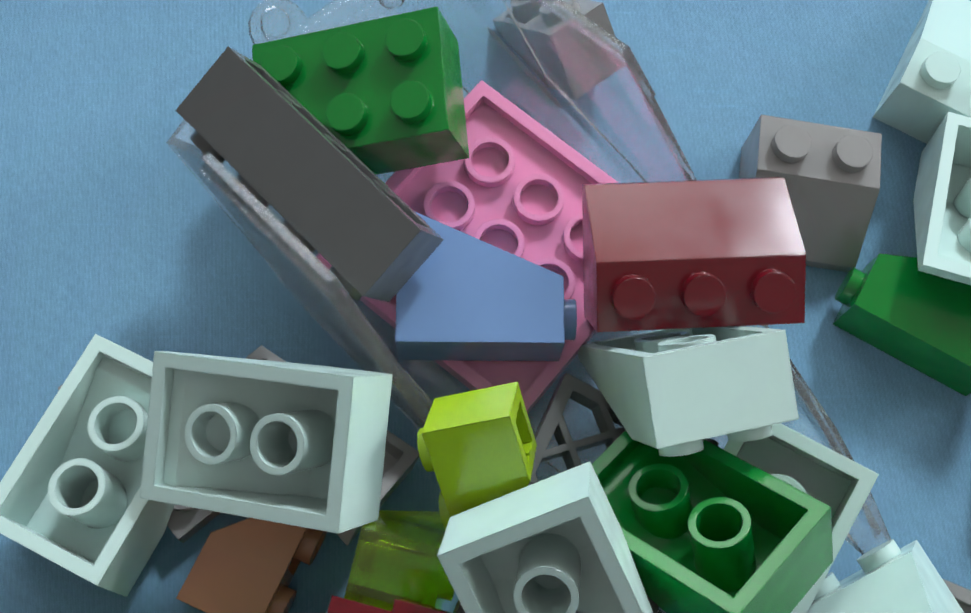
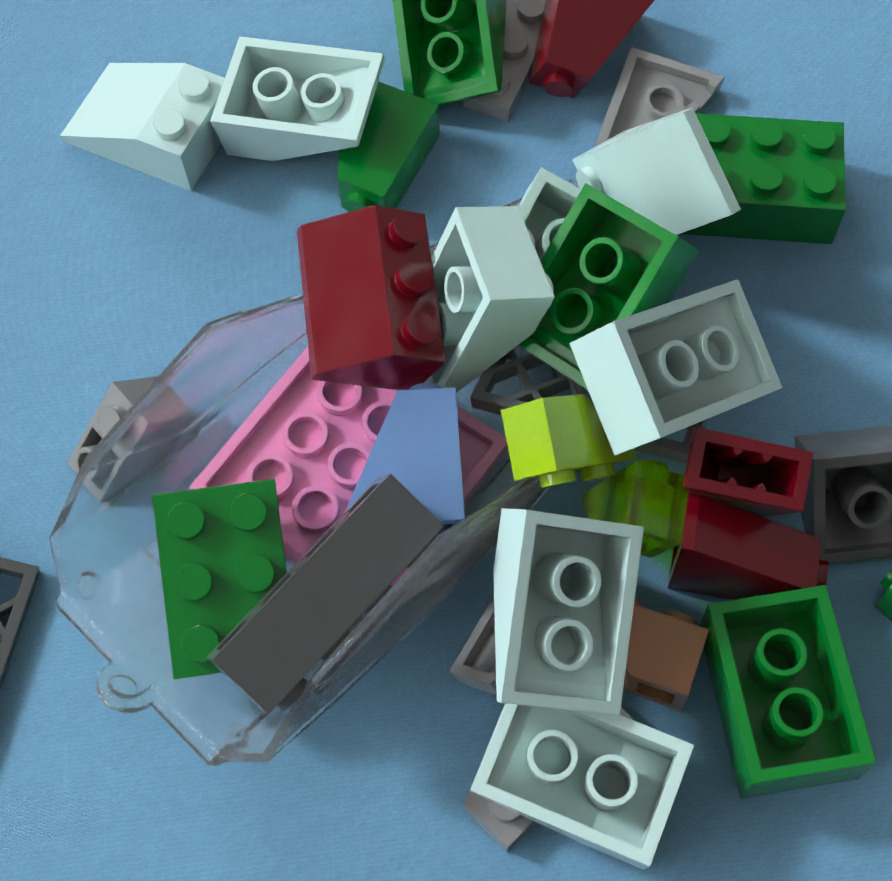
camera: 80 degrees left, 5 degrees down
(829, 179) = (260, 232): light grey slope -> none

